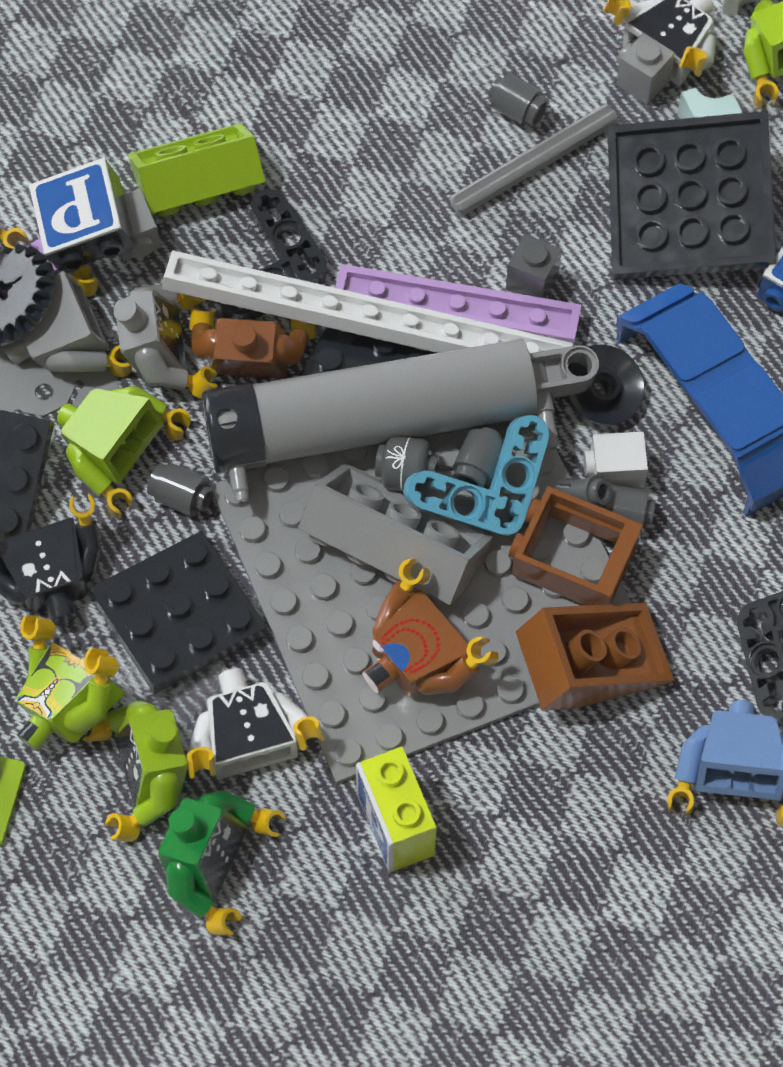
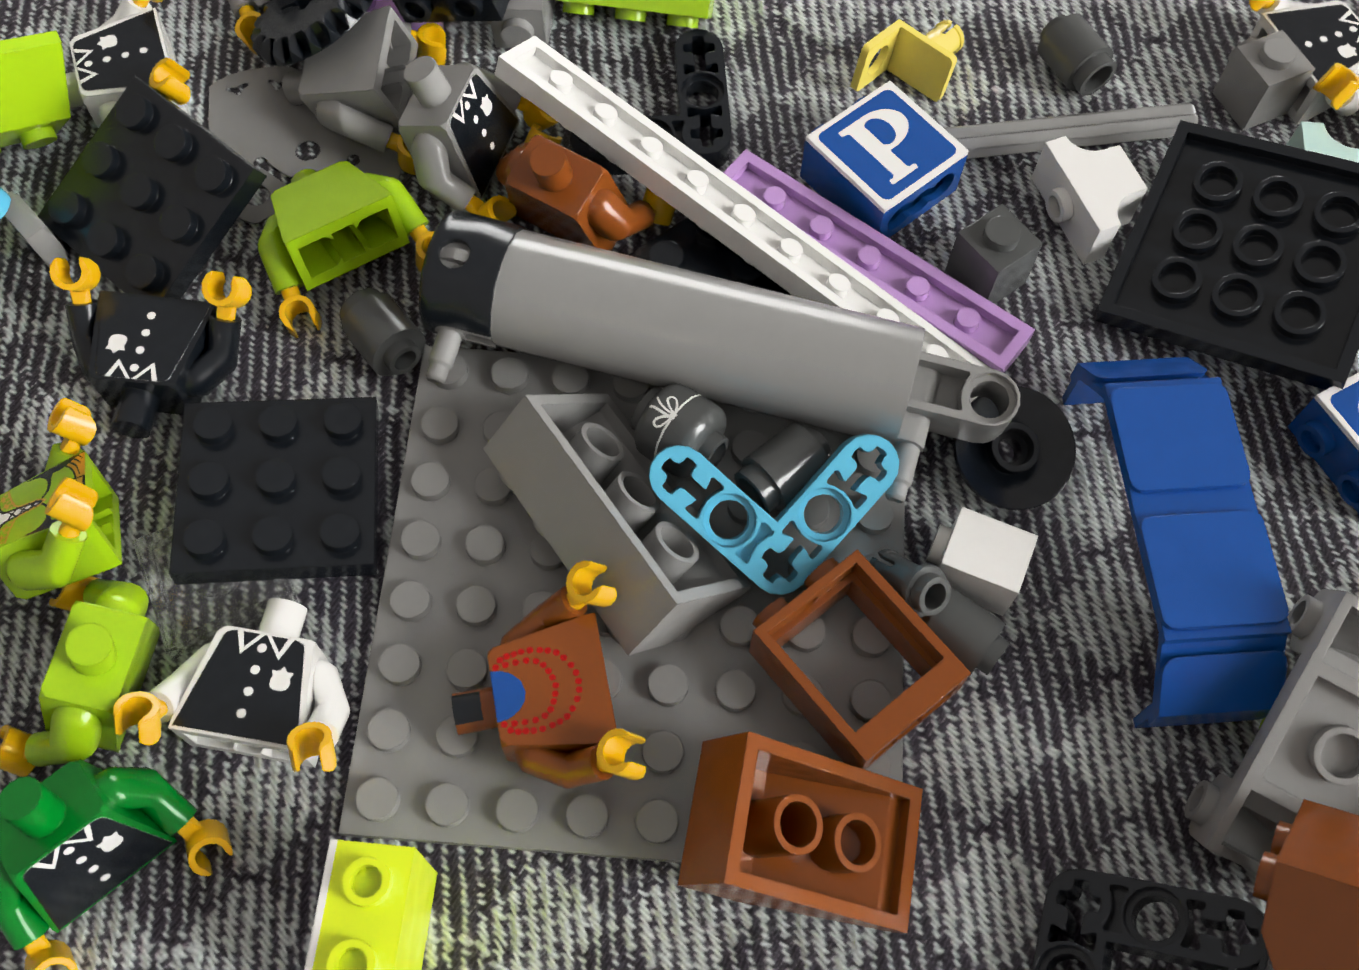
camera: 25 degrees right, 0 degrees up
(415, 148) = (914, 58): none -> light yellow bracket
(431, 233) = (883, 160): none -> piece
(571, 198) = (1088, 193): none -> white brick

